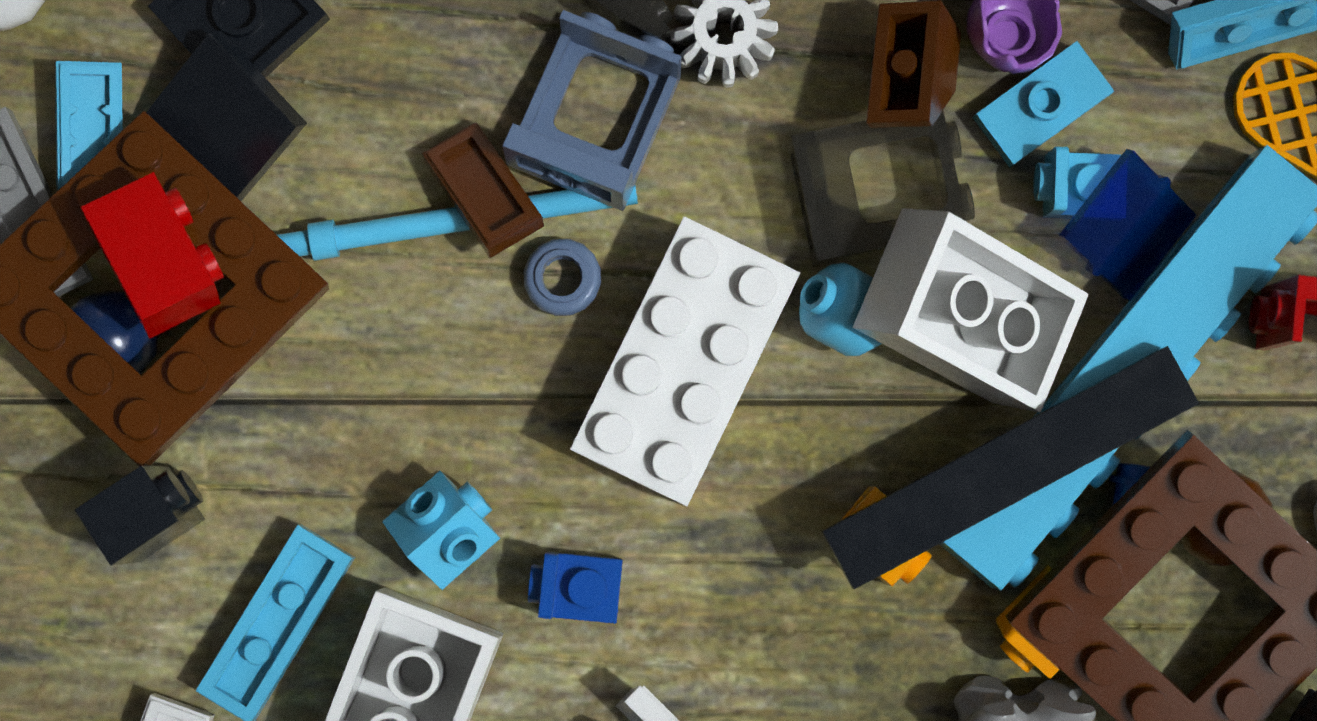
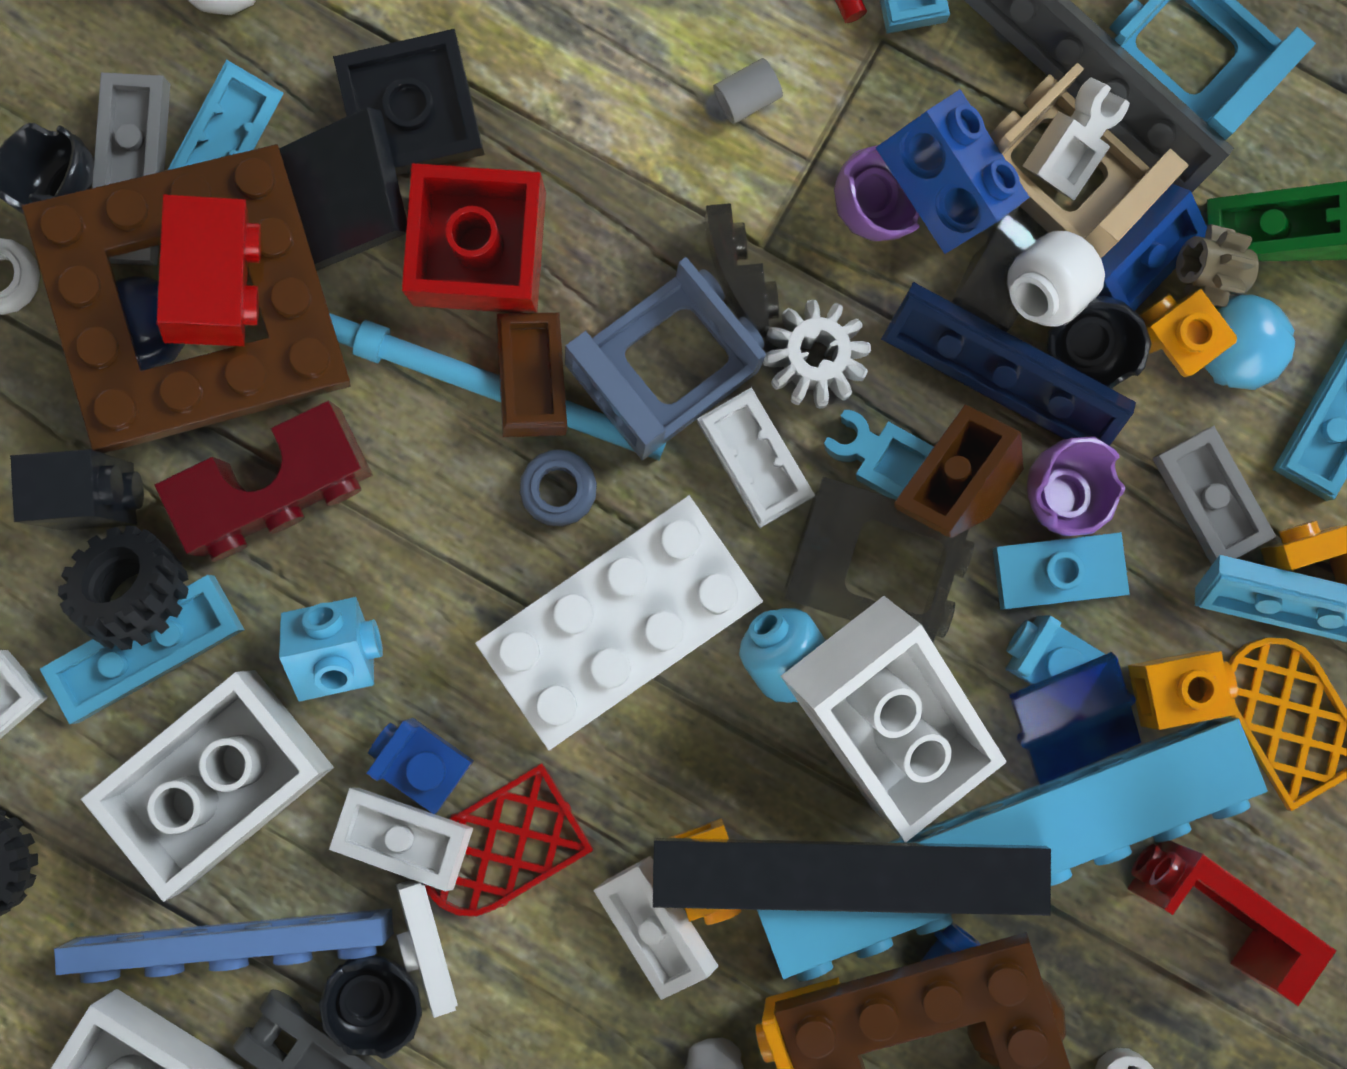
camera: 30 degrees right, 0 degrees up
(203, 568) = (106, 567): none -> black tyre
(277, 467) = (317, 464): none -> dark red arch
(367, 97) = (474, 238): none -> red brick
(599, 659) = (401, 839): none -> white plate
(720, 656) = (563, 809): none -> red window
(721, 153) = (755, 457): none -> white plate
(838, 89) = (886, 459): none -> medium azure plate
(869, 616) = (659, 938): none -> white plate
(1206, 147) = (1183, 689): none -> light orange brick

